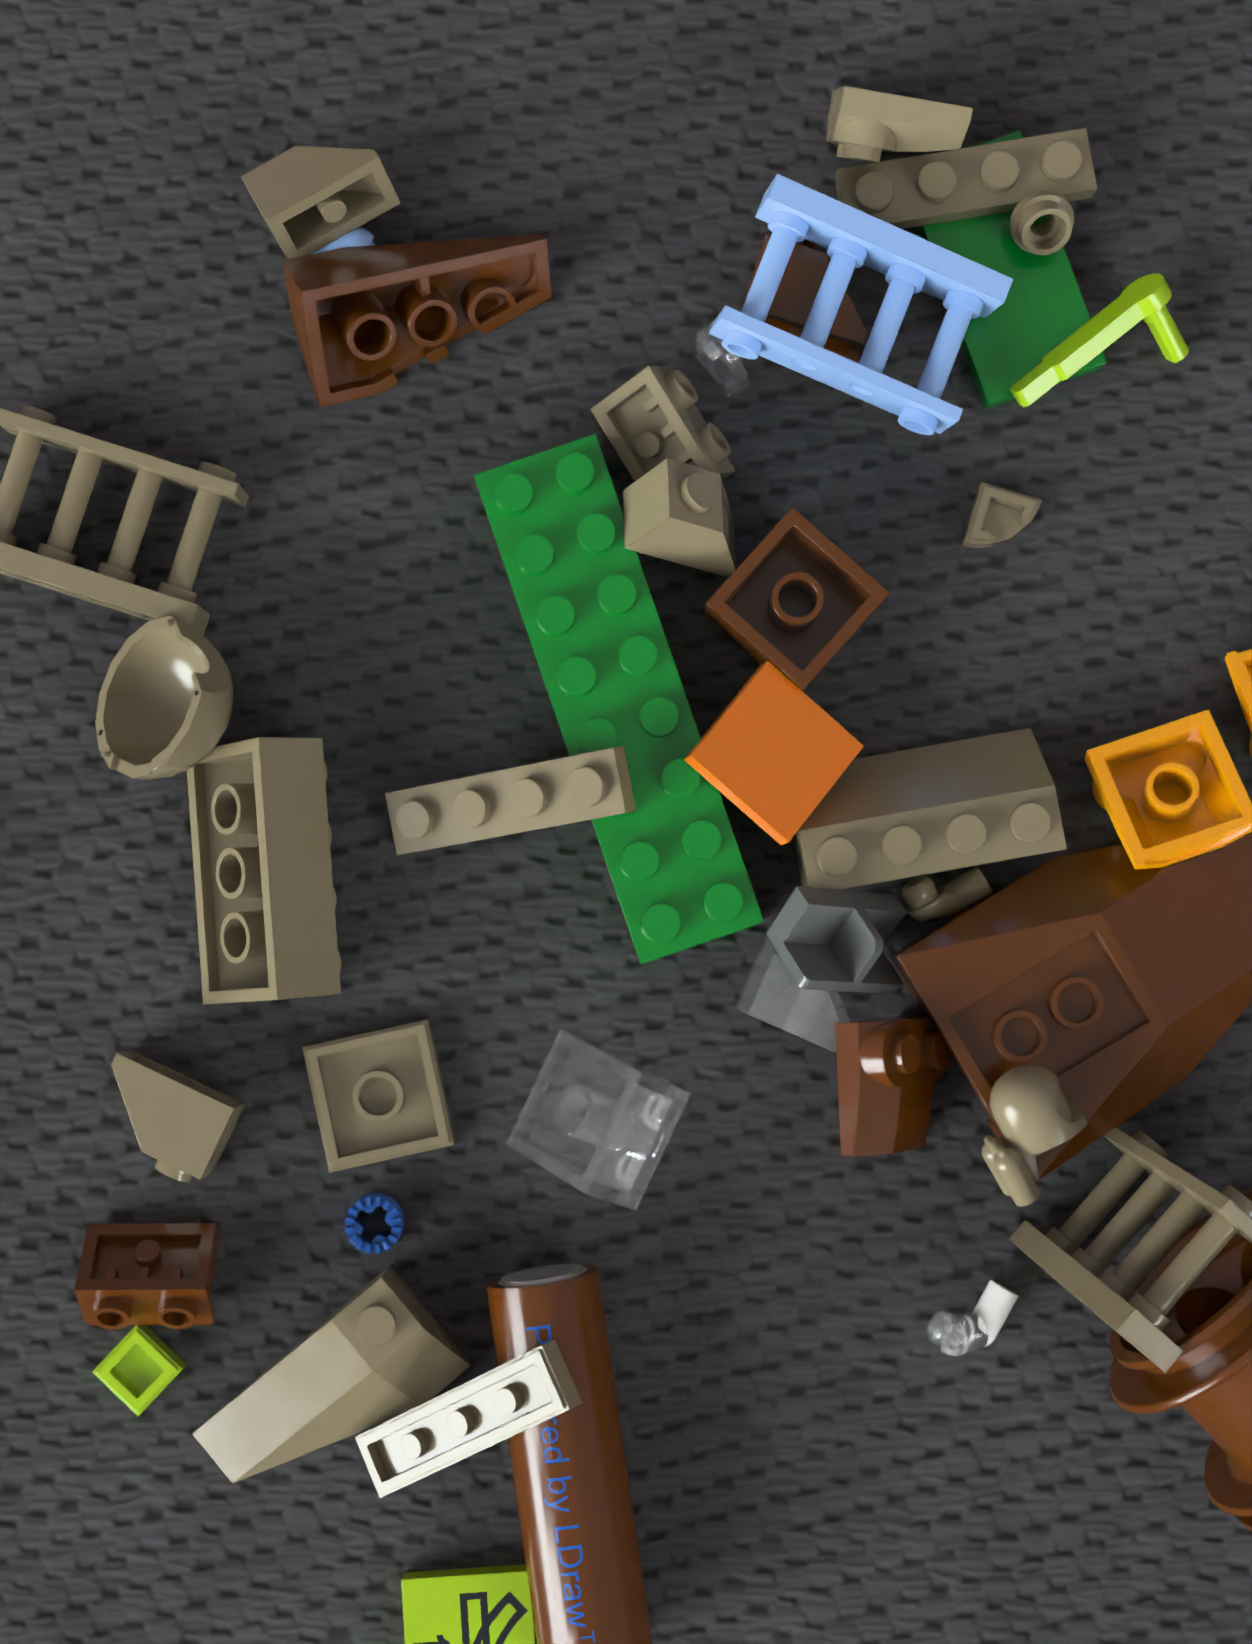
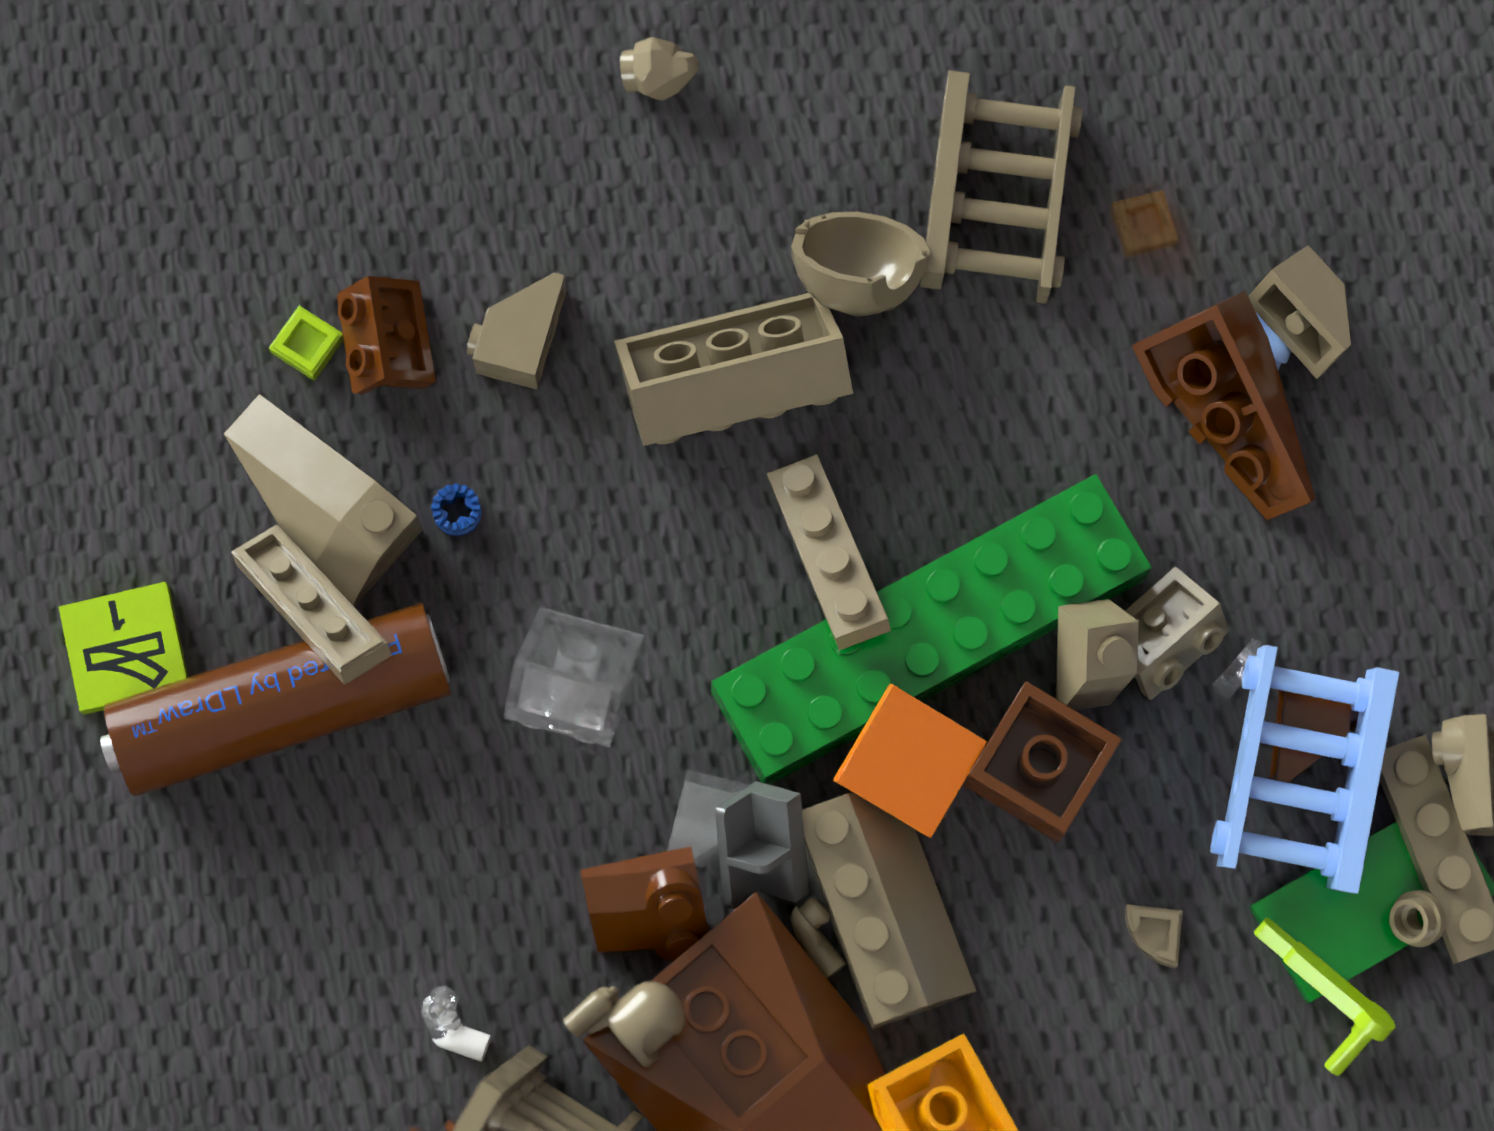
camera: 75 degrees right, 10 degrees down
(175, 363) = (1144, 223): none -> clear orange tile
(379, 1095) = (563, 495): dark tan tile -> none

